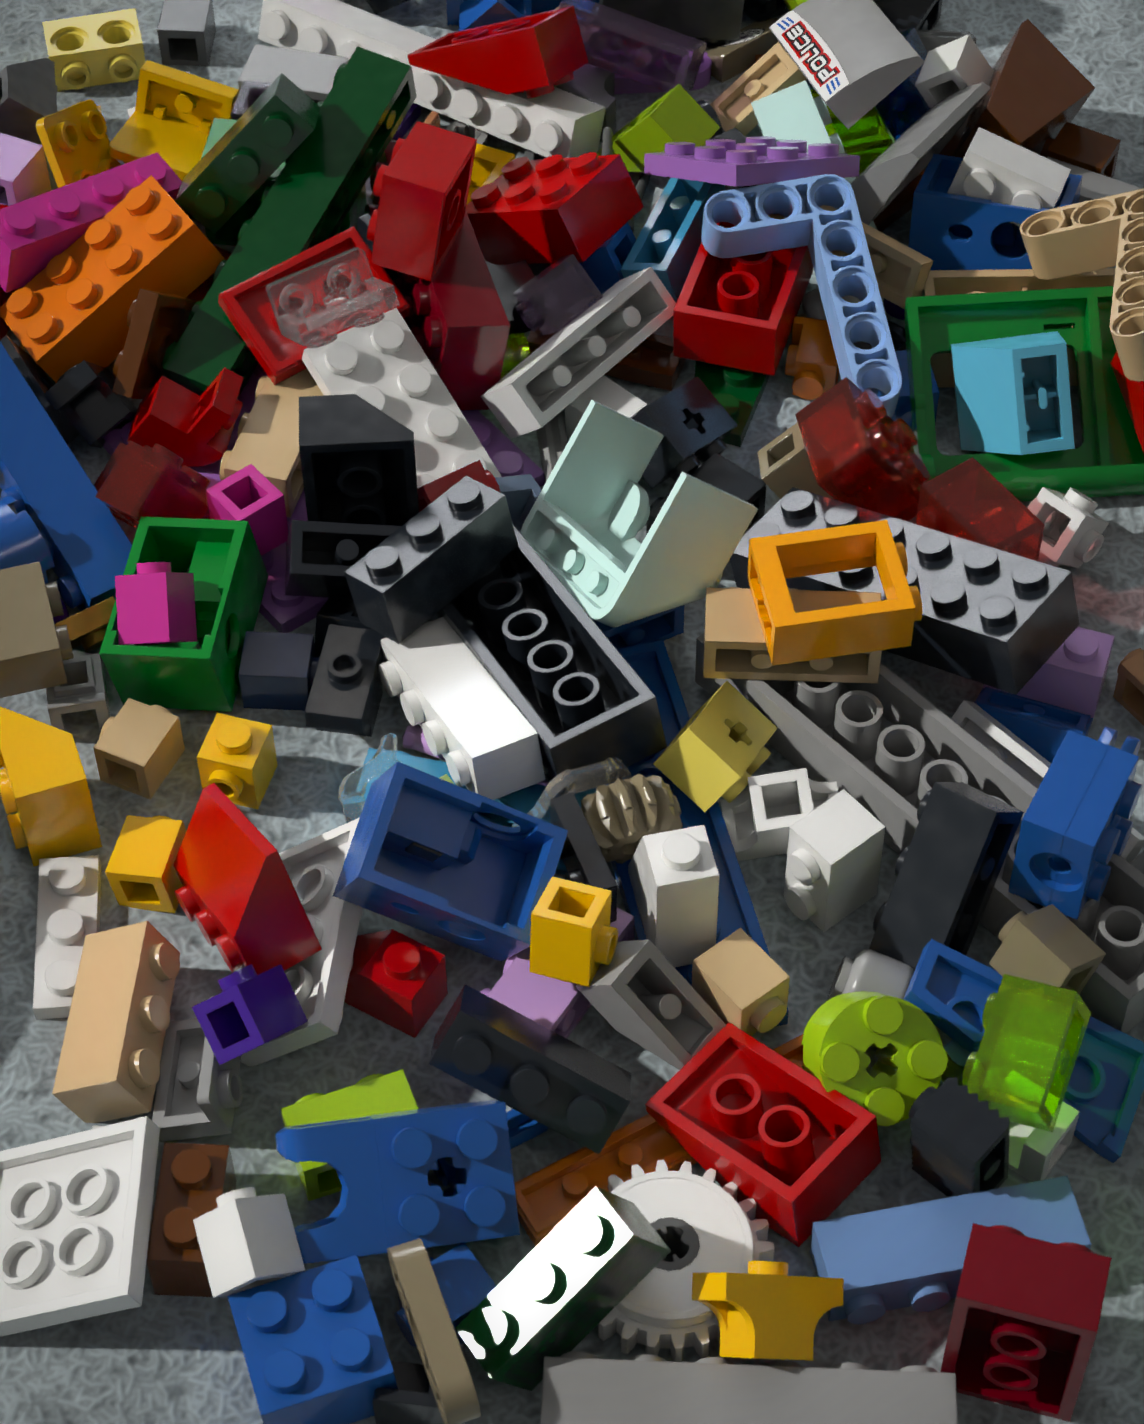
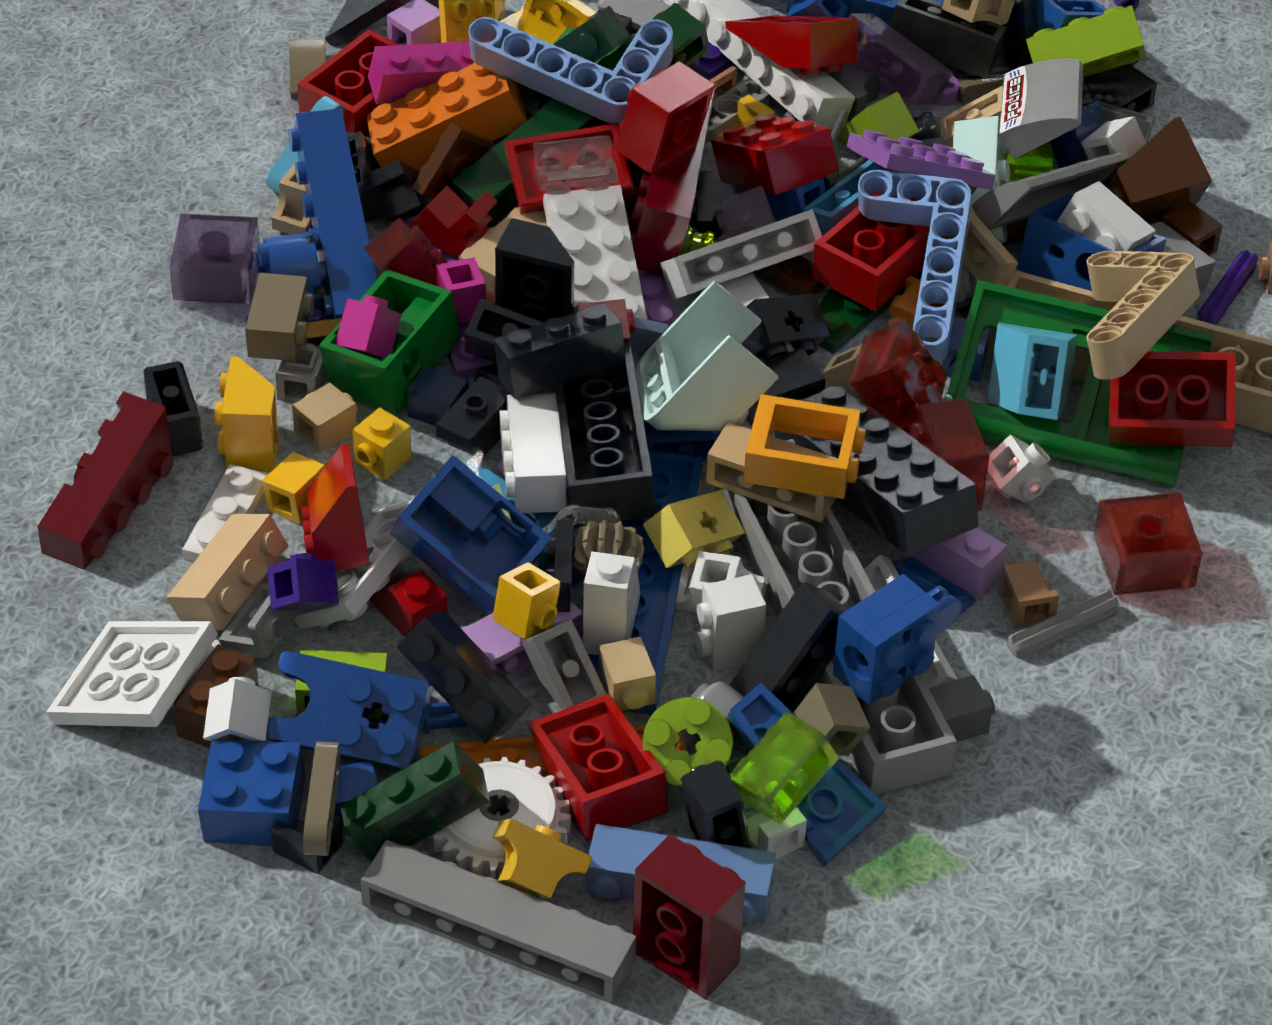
camera: 20 degrees right, 5 degrees down
(270, 171) = (572, 70): none -> light blue beam

